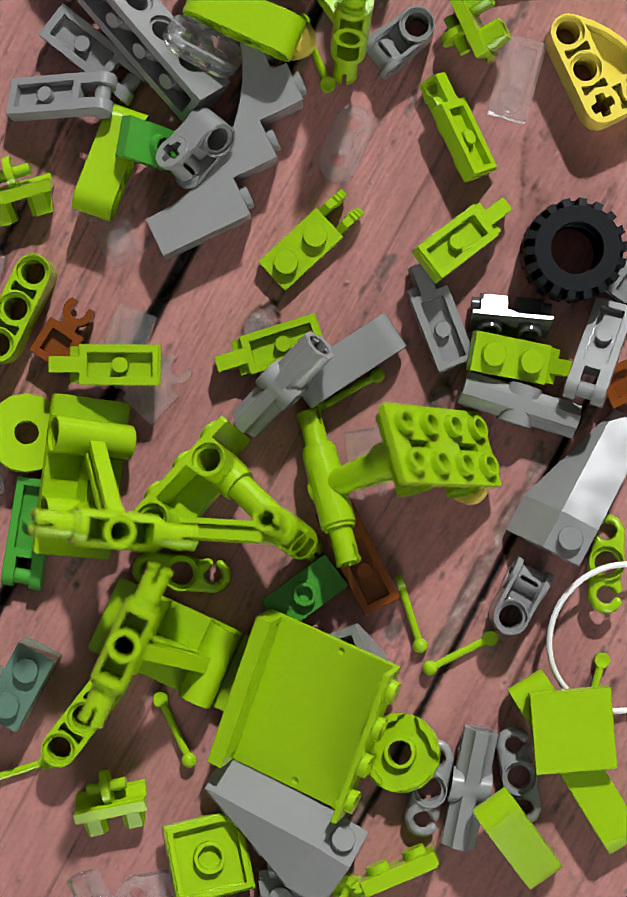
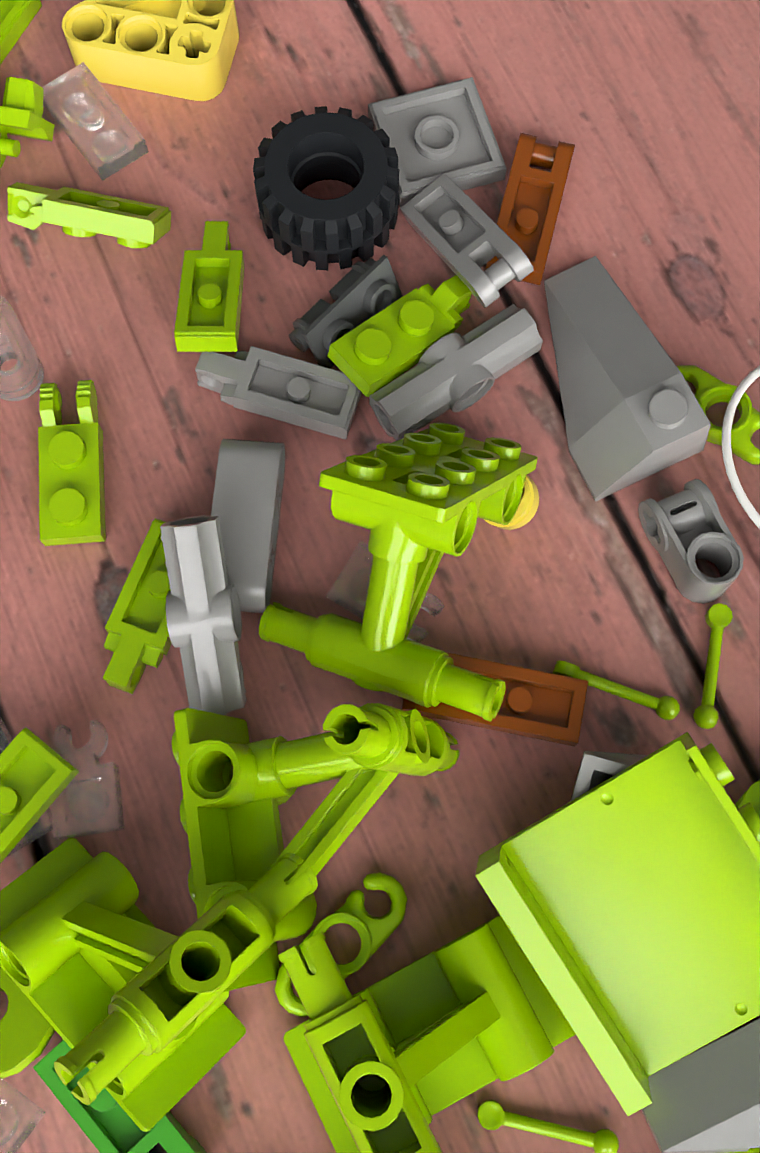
camera: 55 degrees left, 15 degrees down
(307, 589) = (489, 793): bright green plate -> none
(376, 375) = (290, 509): lime hinge -> none

